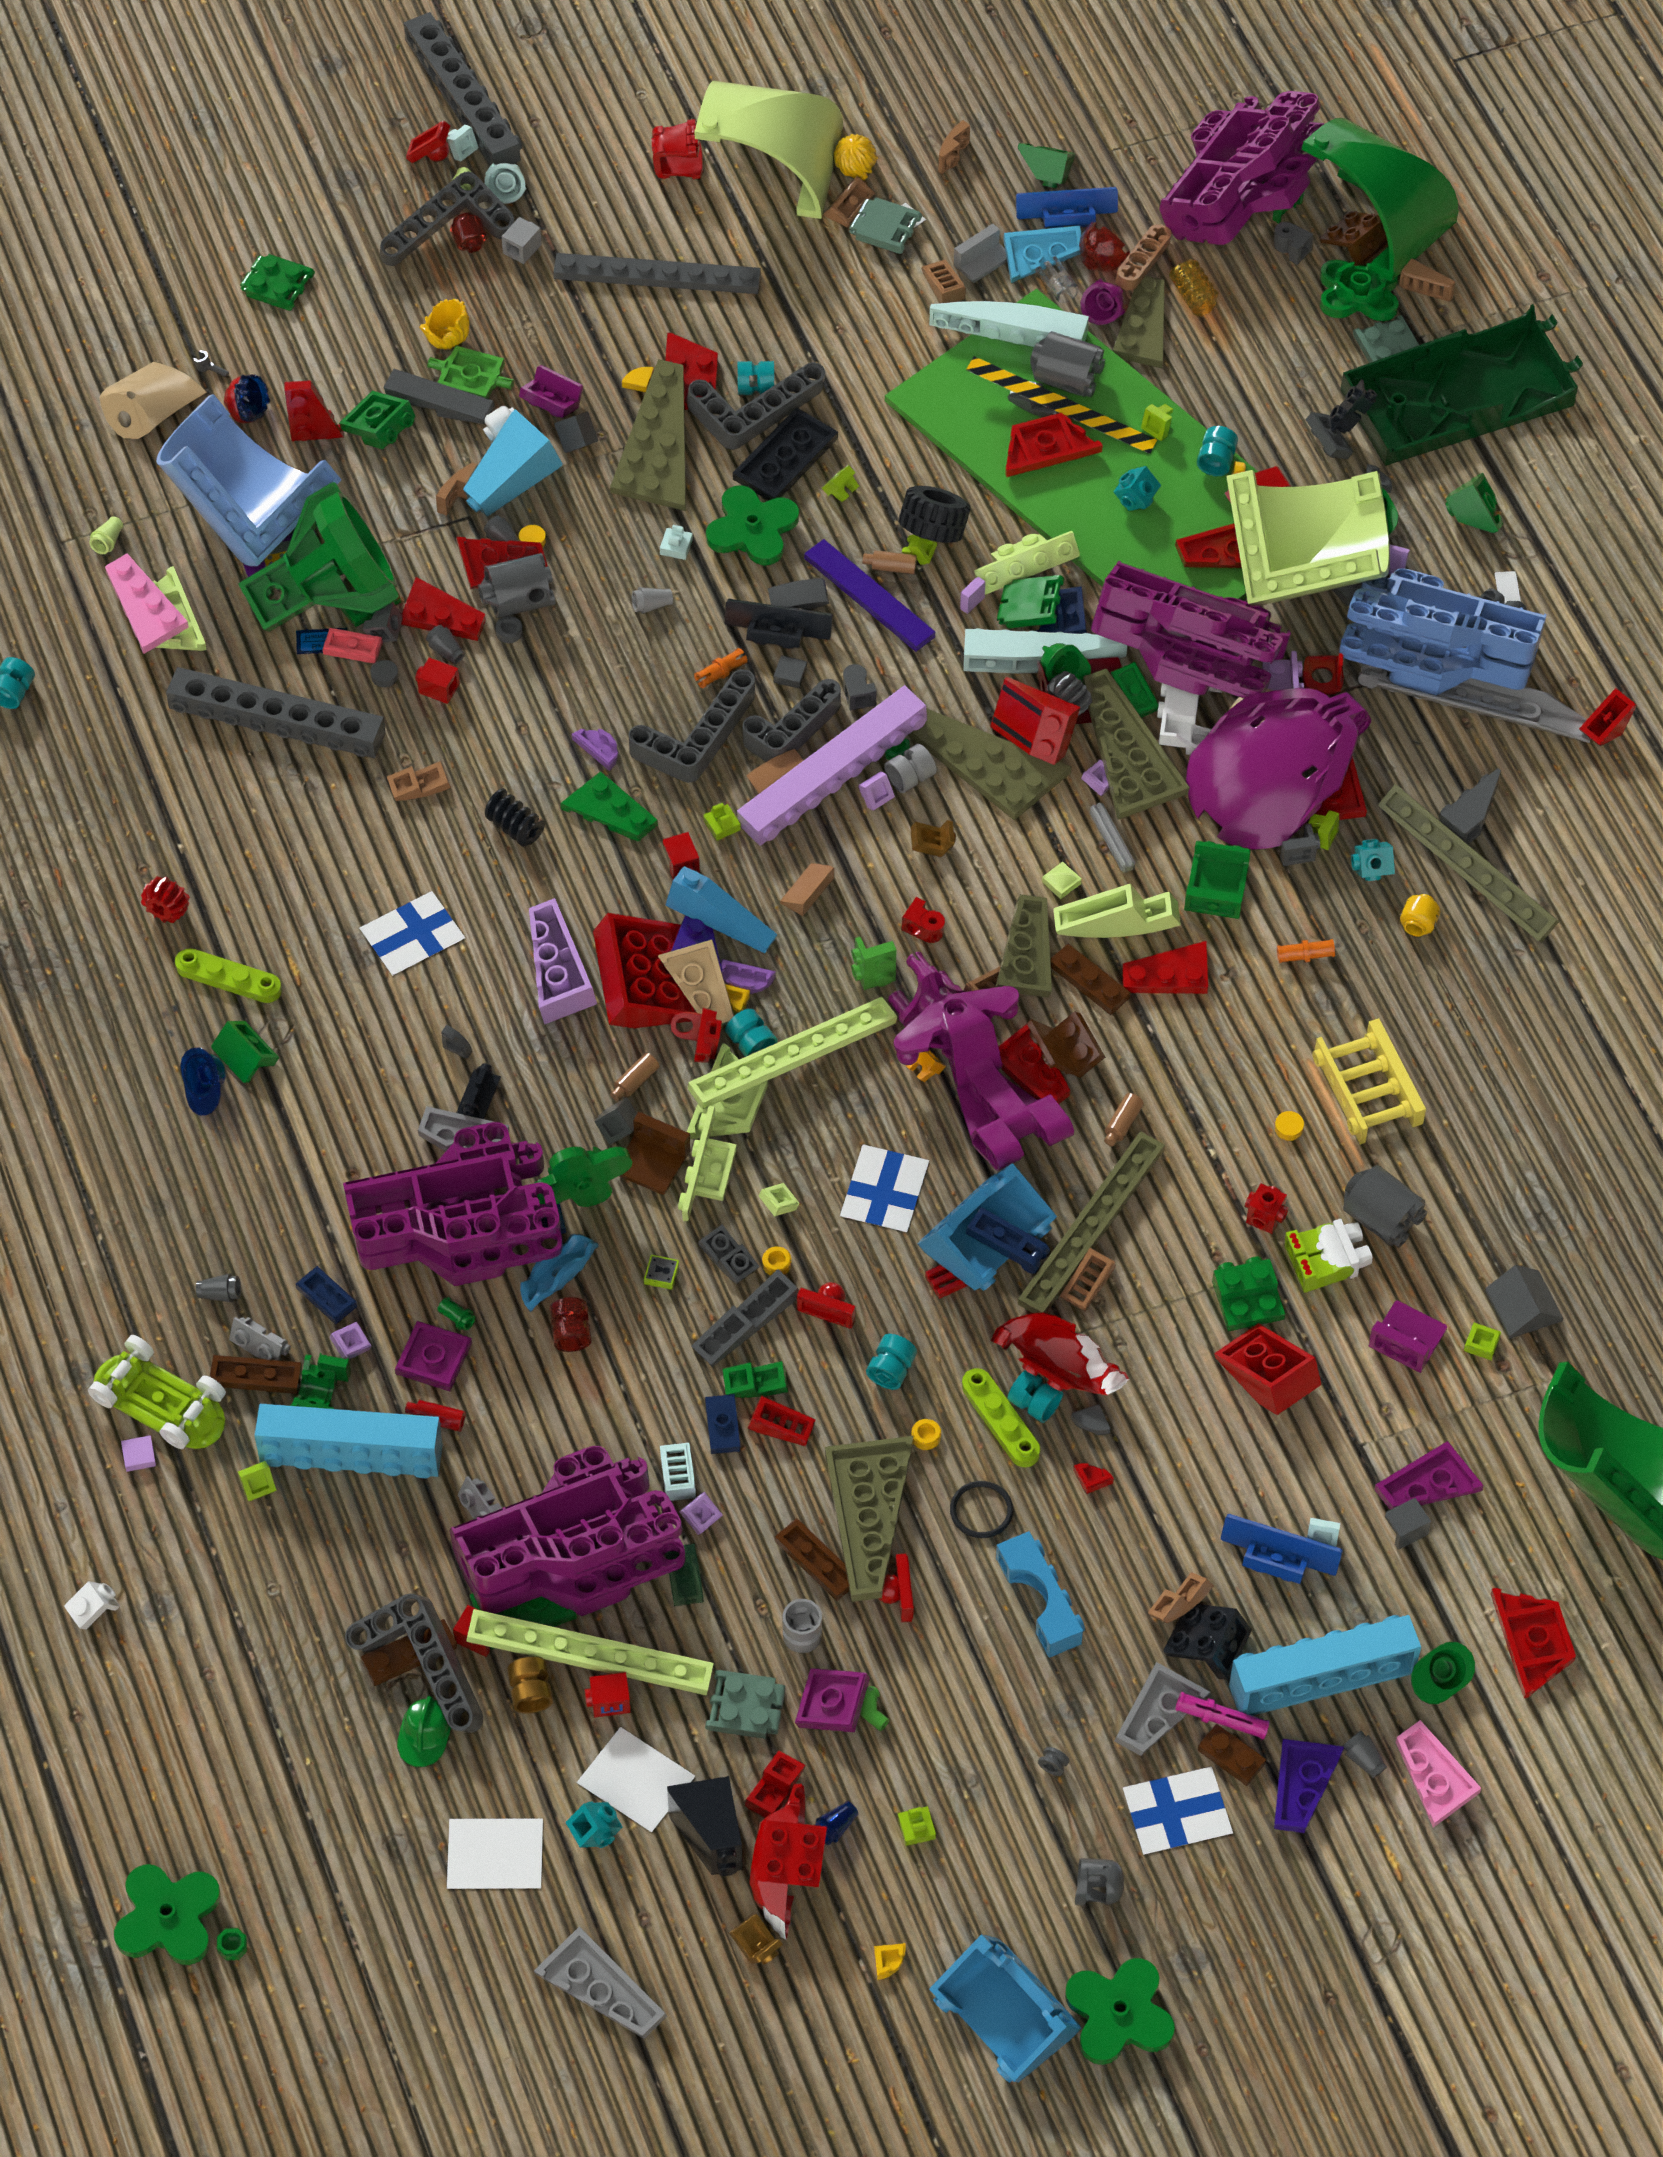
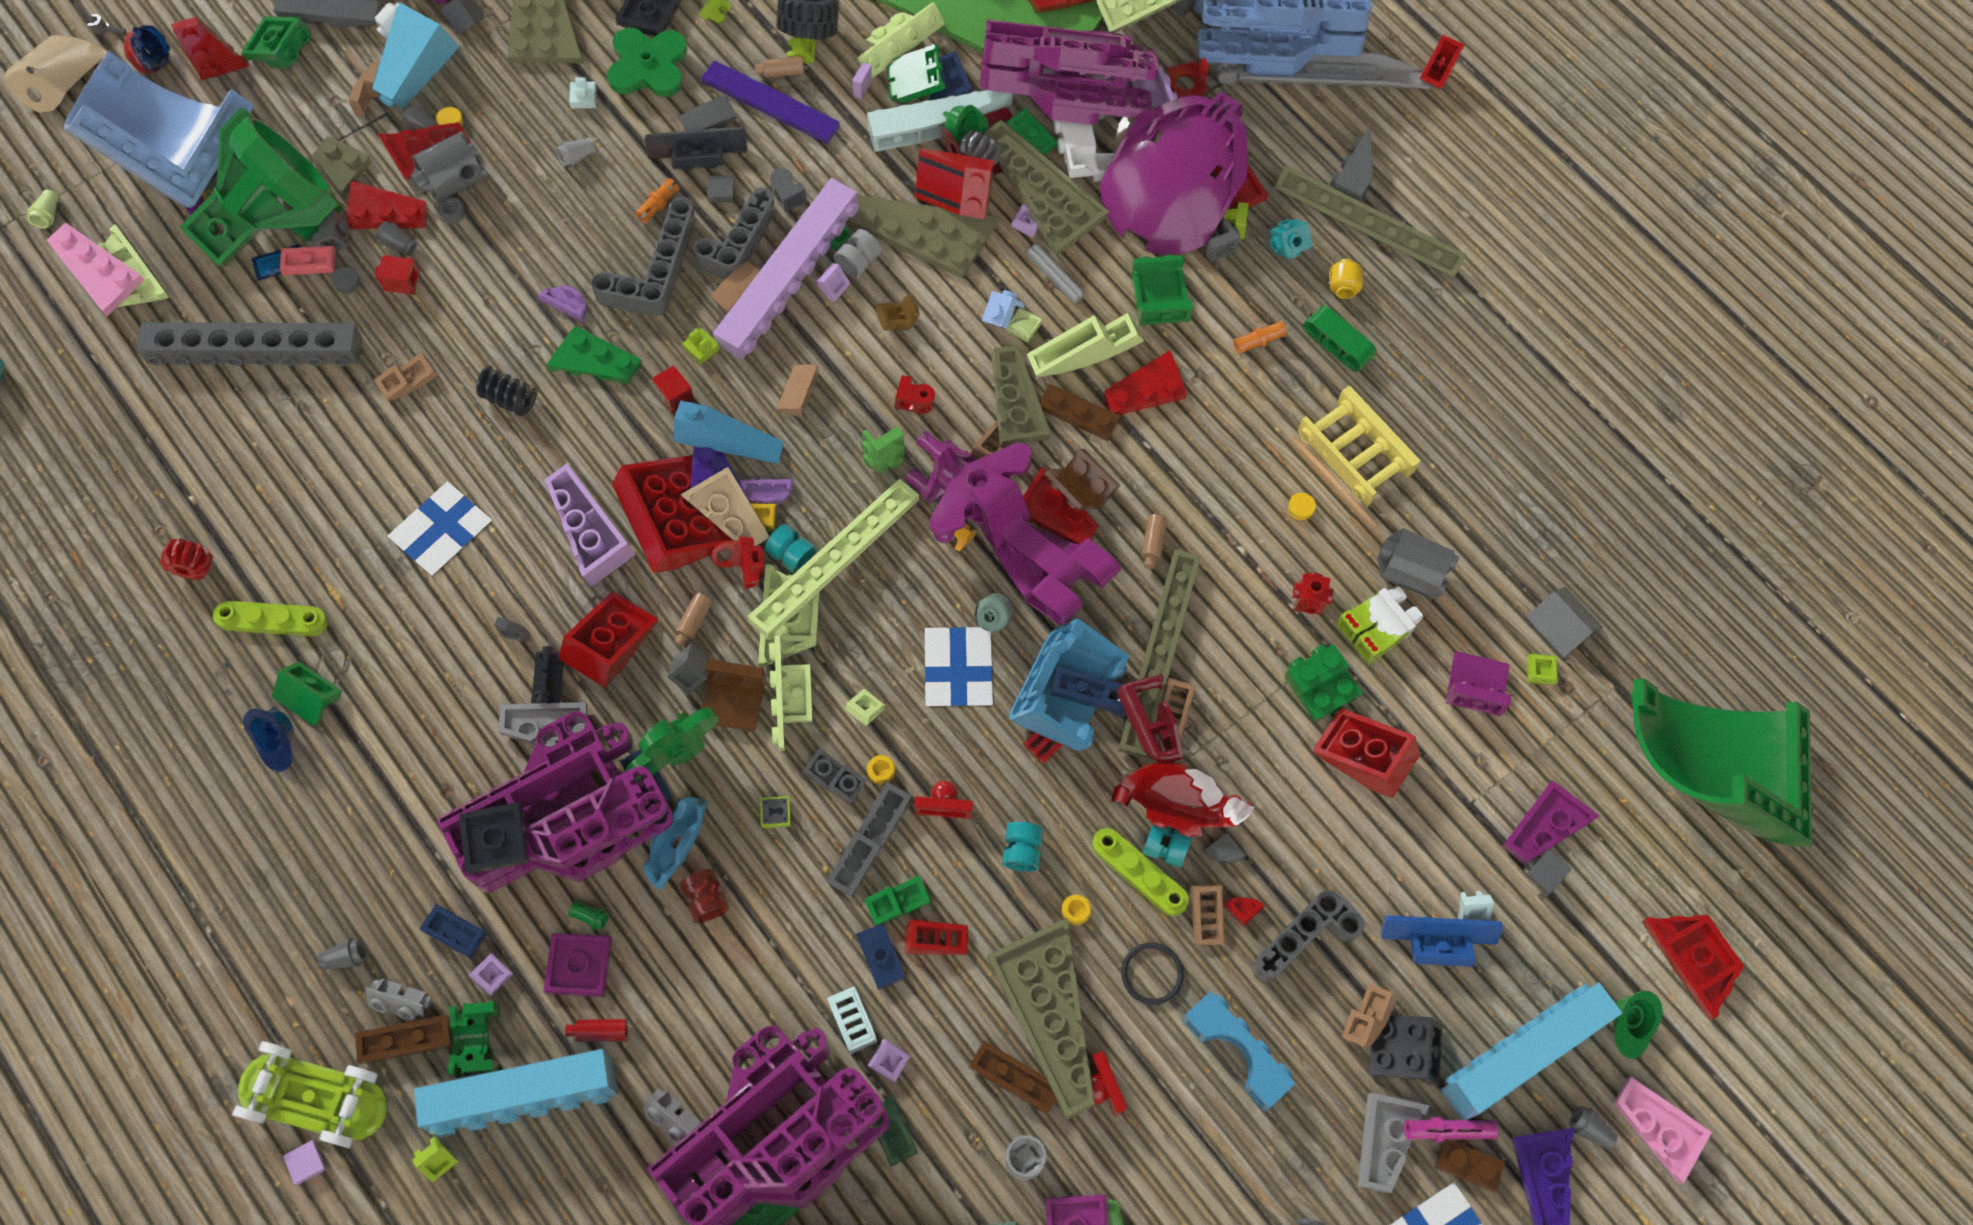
camera: 20 degrees left, 10 degrees up
(392, 1207) = (494, 838): none -> black plate
(410, 557) = (341, 163): none -> olive wing
(545, 1073) = (606, 638): none -> red slope
(935, 1143) = (994, 612): none -> sand green head
(1041, 857) = (1001, 308): none -> light blue bracket
(1044, 1280) = (1165, 723): none -> dark red piece
(1060, 1449) = (1197, 915): none -> medium nougat slope
(1103, 1527) = (1300, 938): none -> dark grey beam
(1390, 972) = (1340, 338): none -> green beam

